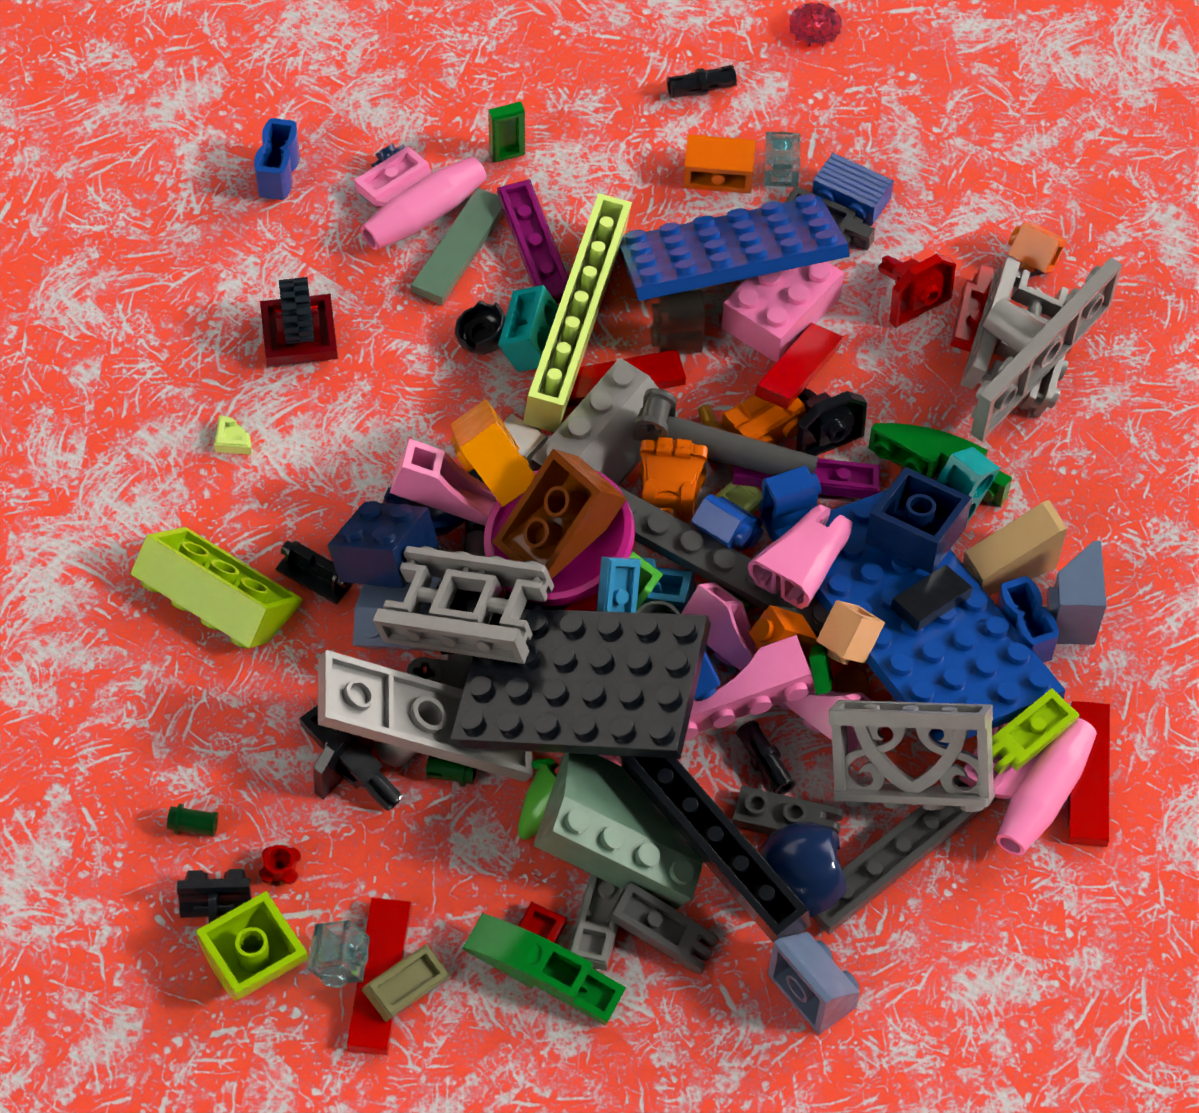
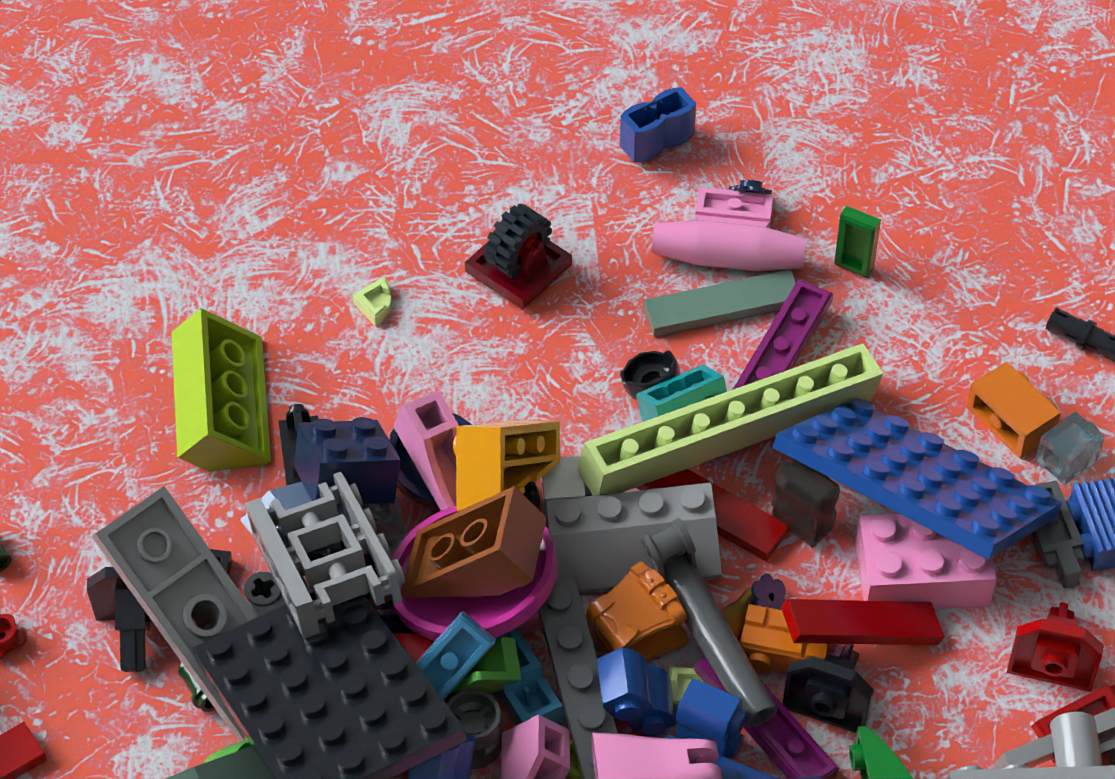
camera: 50 degrees right, 5 degrees down
(717, 401) = (769, 592): none -> dark blue plant

